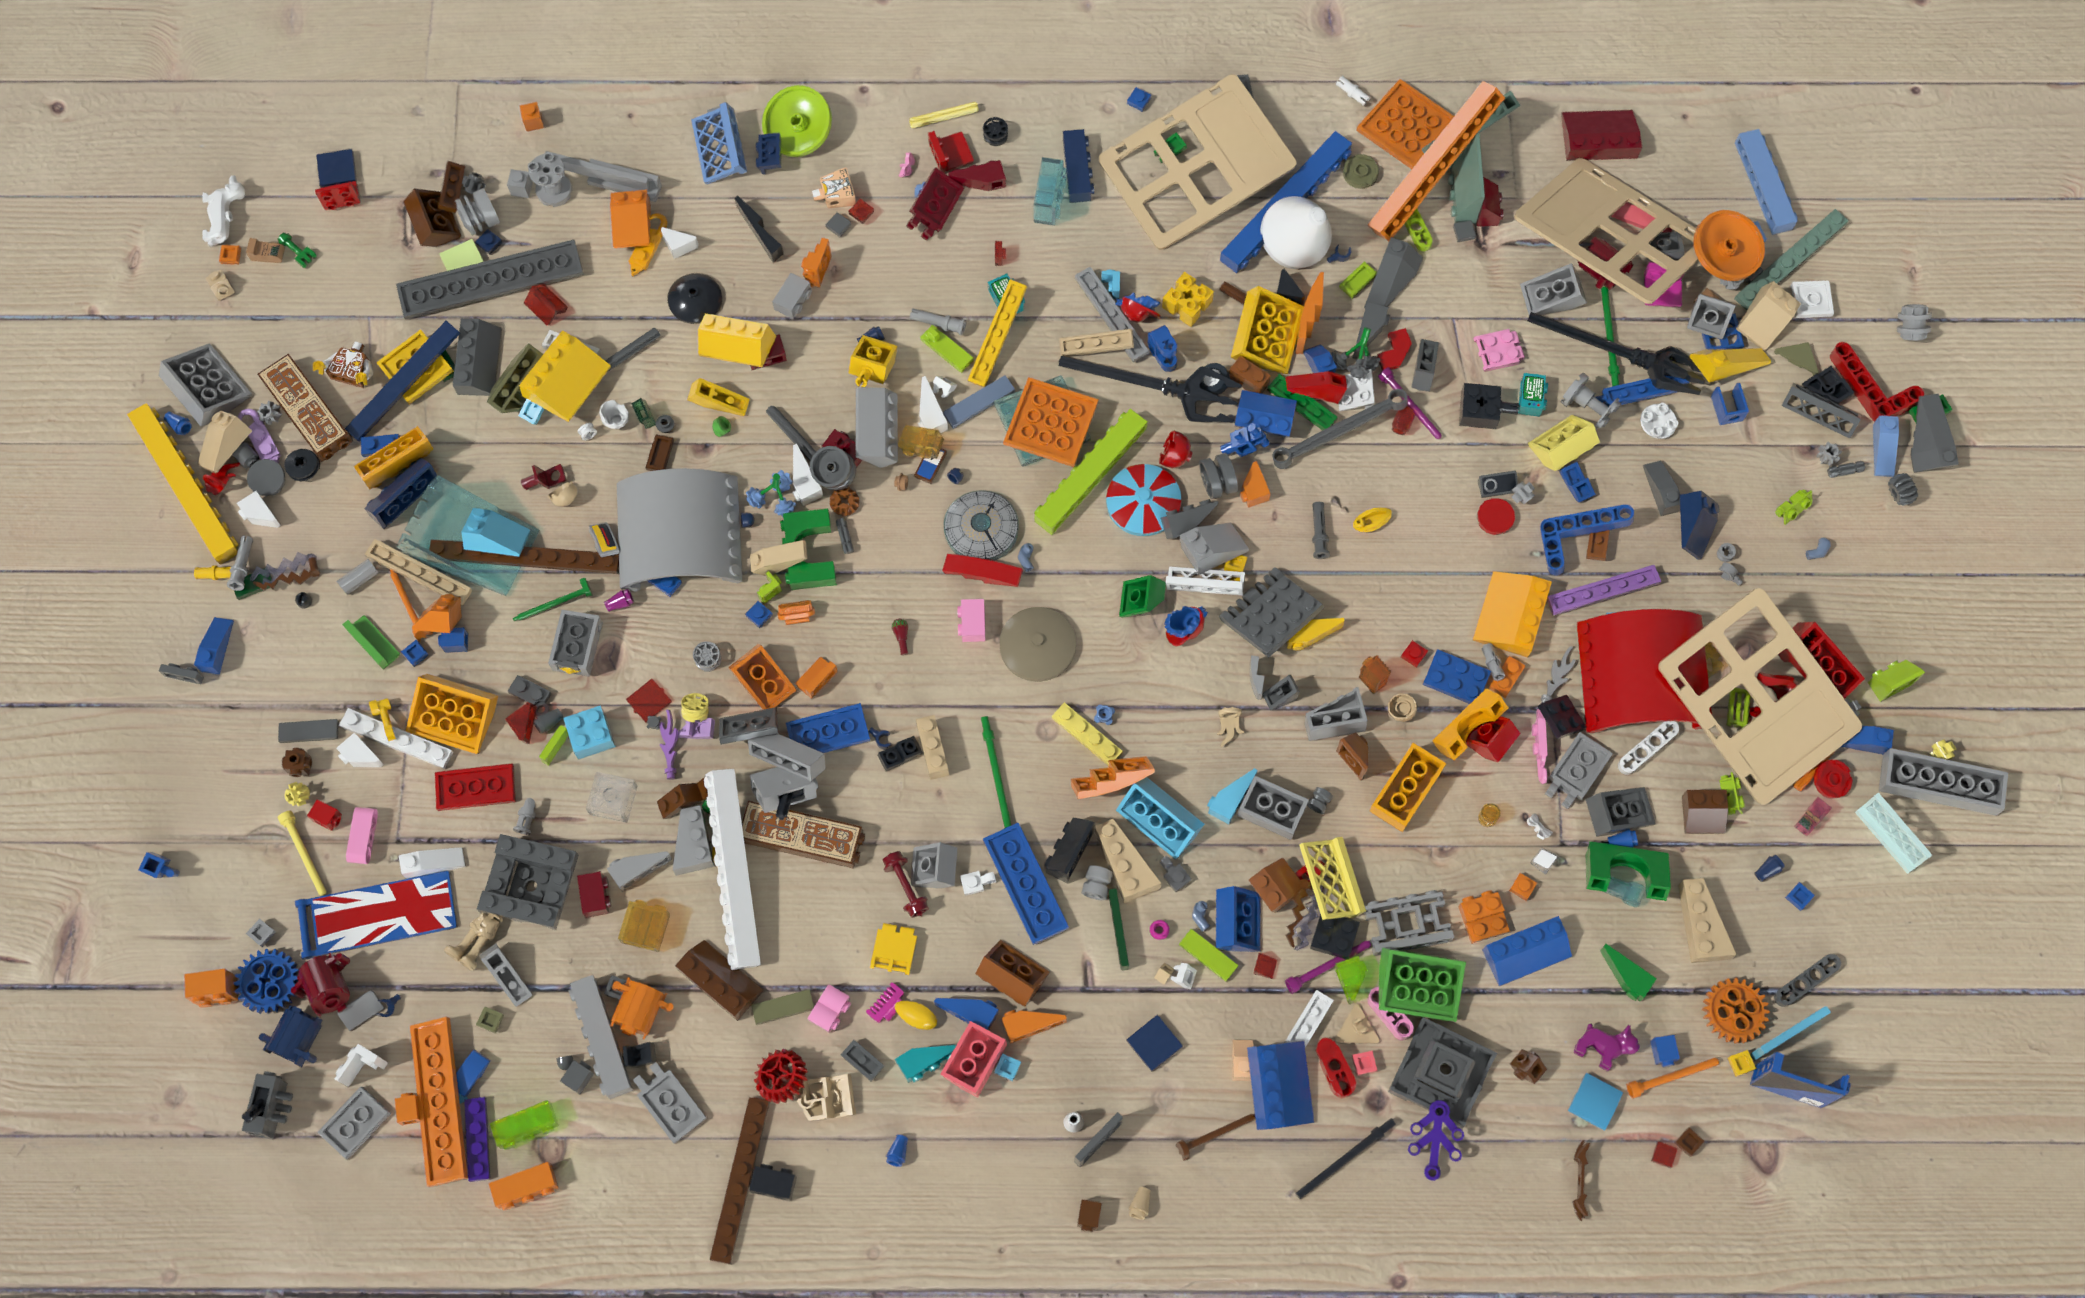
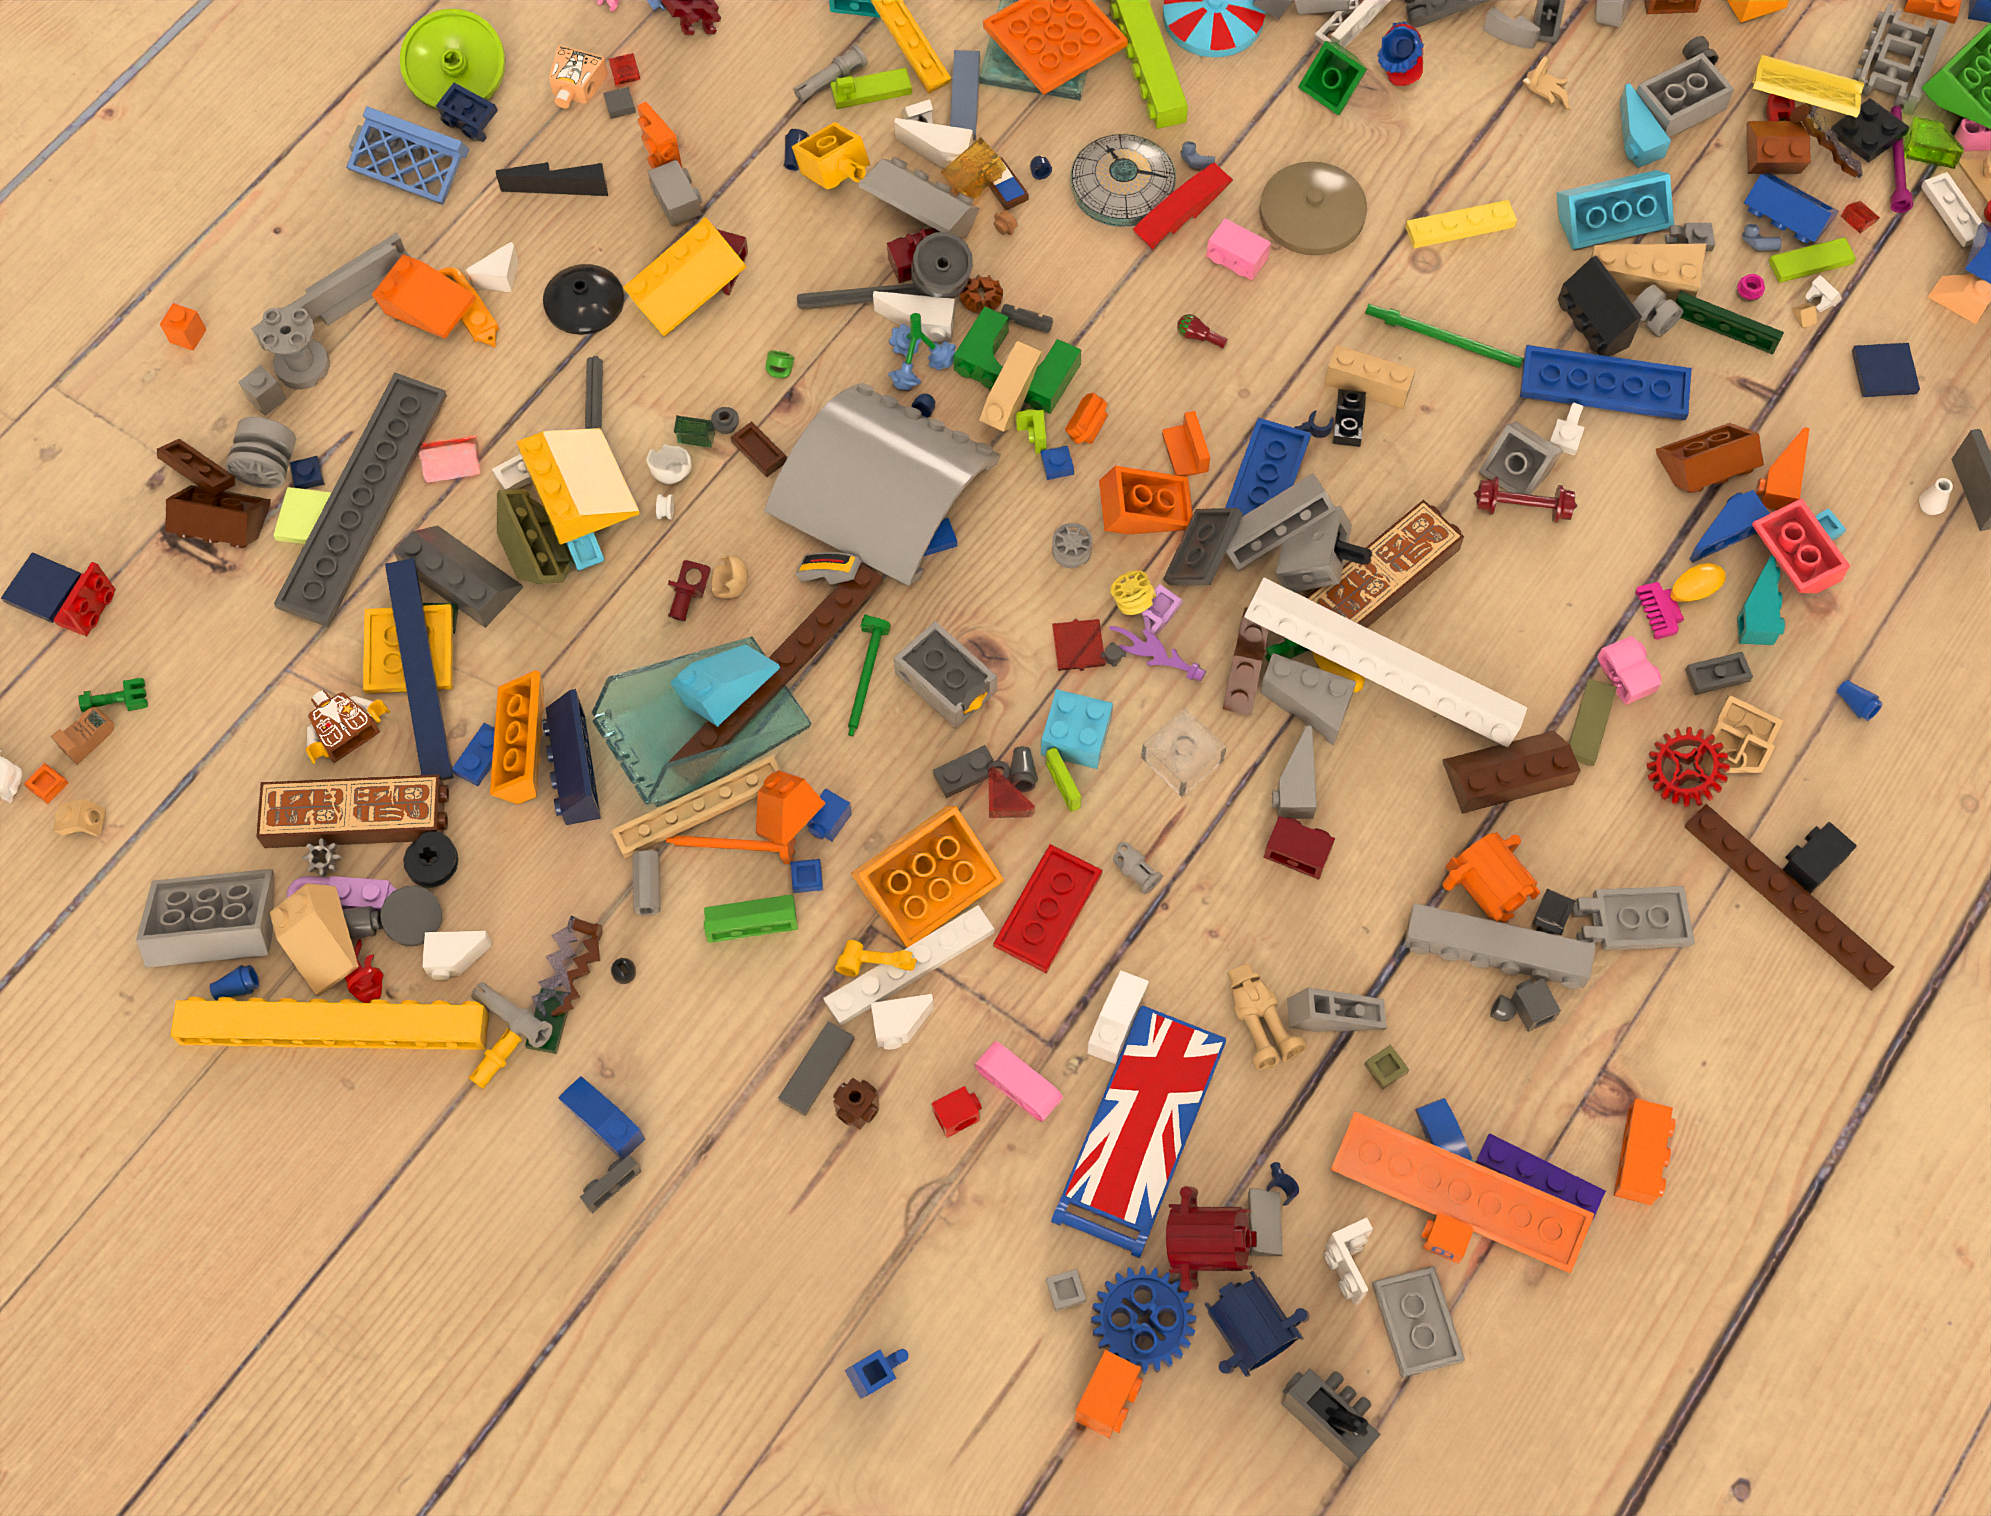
camera: 55 degrees left, 5 degrees down
(287, 819) = (928, 1164): light yellow piece -> none
(297, 794) = (901, 1128): light yellow gear -> none
(473, 182) = (214, 439): dark grey gear -> none
(524, 1125) = (1561, 1104): clear neon green brick -> none
(537, 862) = (1209, 889): dark grey piece -> none
(612, 993) = (1439, 896): dark grey plate -> none
(619, 600) = (922, 598): magenta cone -> none
(644, 925) = (1384, 810): clear yellow brick -> none
(717, 398) = (735, 345): yellow slope -> none
(894, 948) = (1596, 558): yellow plate -> none
(1109, 711) = (1449, 187): medium blue plate -> none
(1115, 777) = (1540, 219): orange slope -> none

